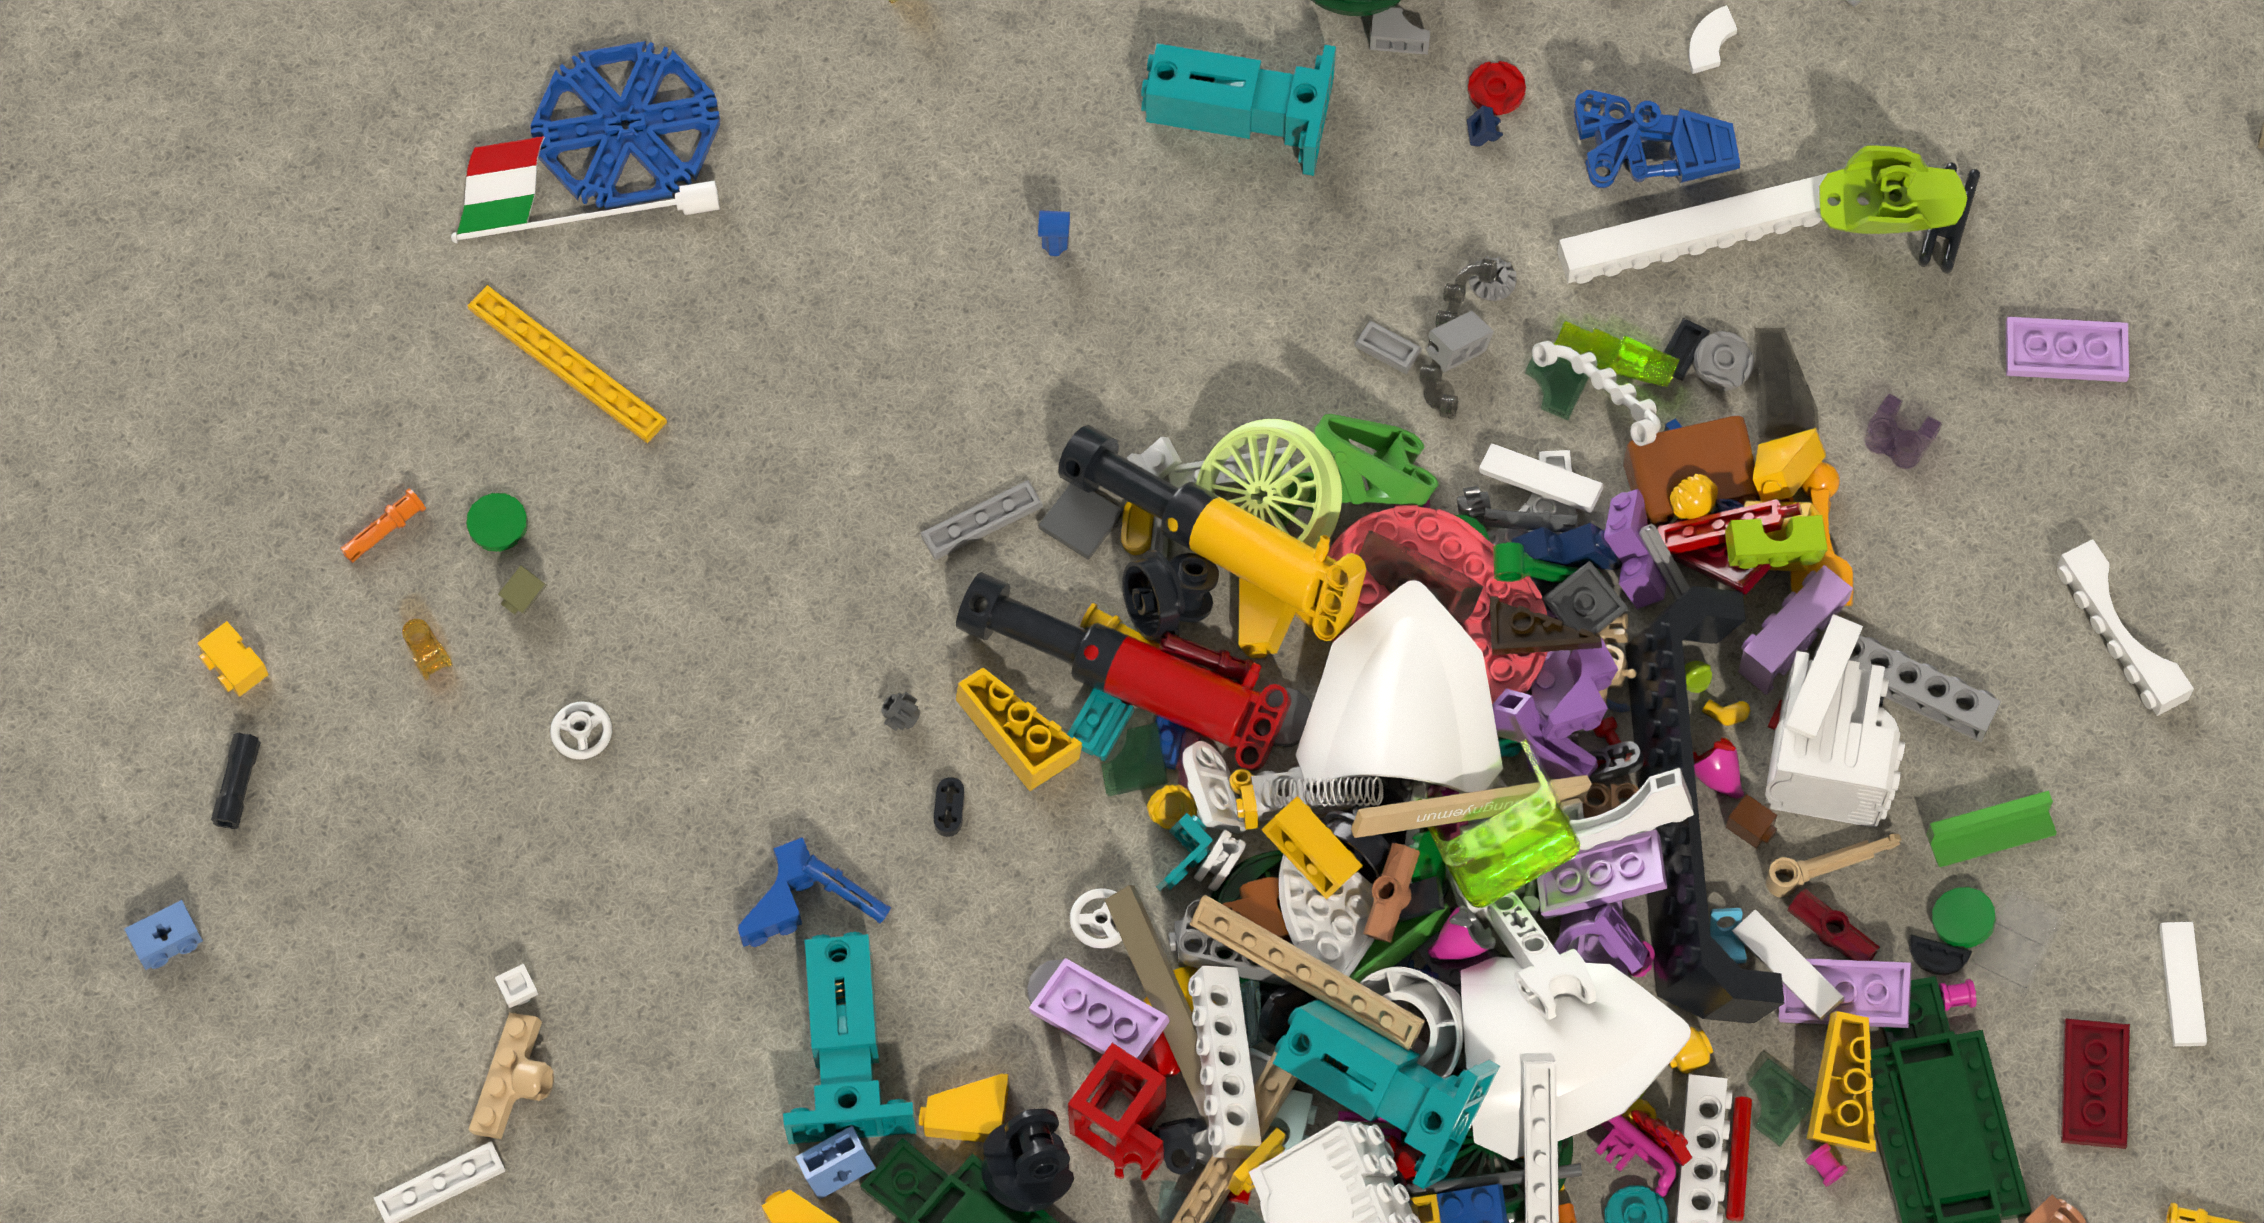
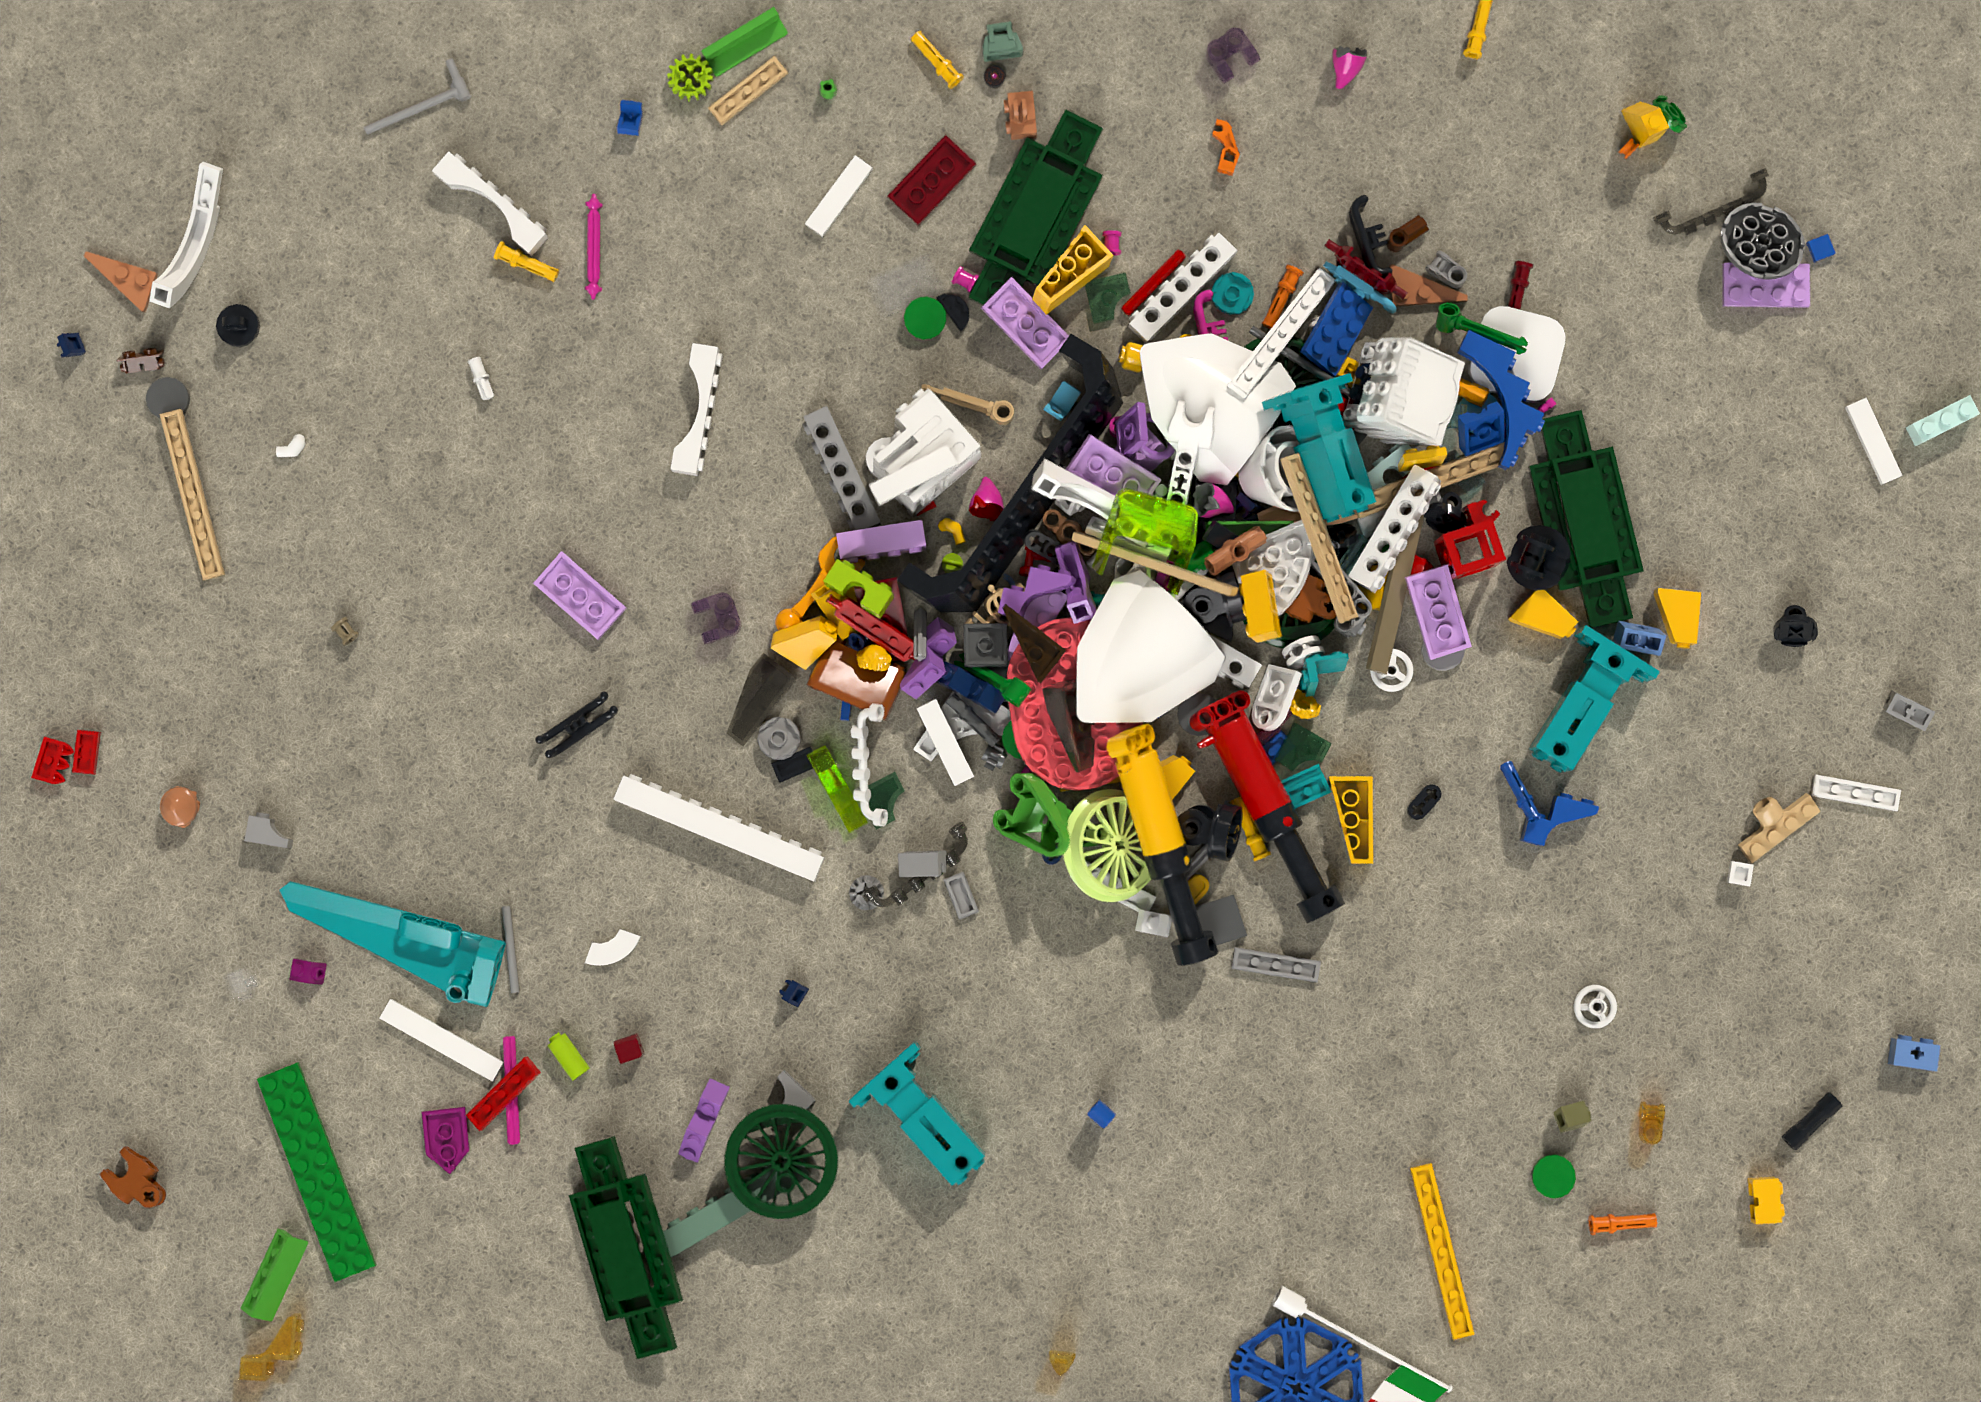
camera: 140 degrees left, 20 degrees up
(900, 711) = (1411, 878): dark grey gear -> none
(1218, 661) = (1213, 769): dark red pin -> none
(1246, 807) = (1264, 673): yellow plate -> none
(1324, 792) = (1254, 660): white piece -> none
(1500, 95) = (767, 1019): red tile -> none
(1670, 1141) = (1190, 309): red plate -> none
(1697, 147) = (684, 876): blue piece -> none
(1752, 822) = (993, 455): reddish brown brick -> none
(1783, 958) = (1044, 360): white tile -> none
(1818, 915) = (1002, 377): dark red piece -> none
(1899, 192) = (602, 748): lime piece -> none
(1991, 829) = (867, 354): bright green panel -> none

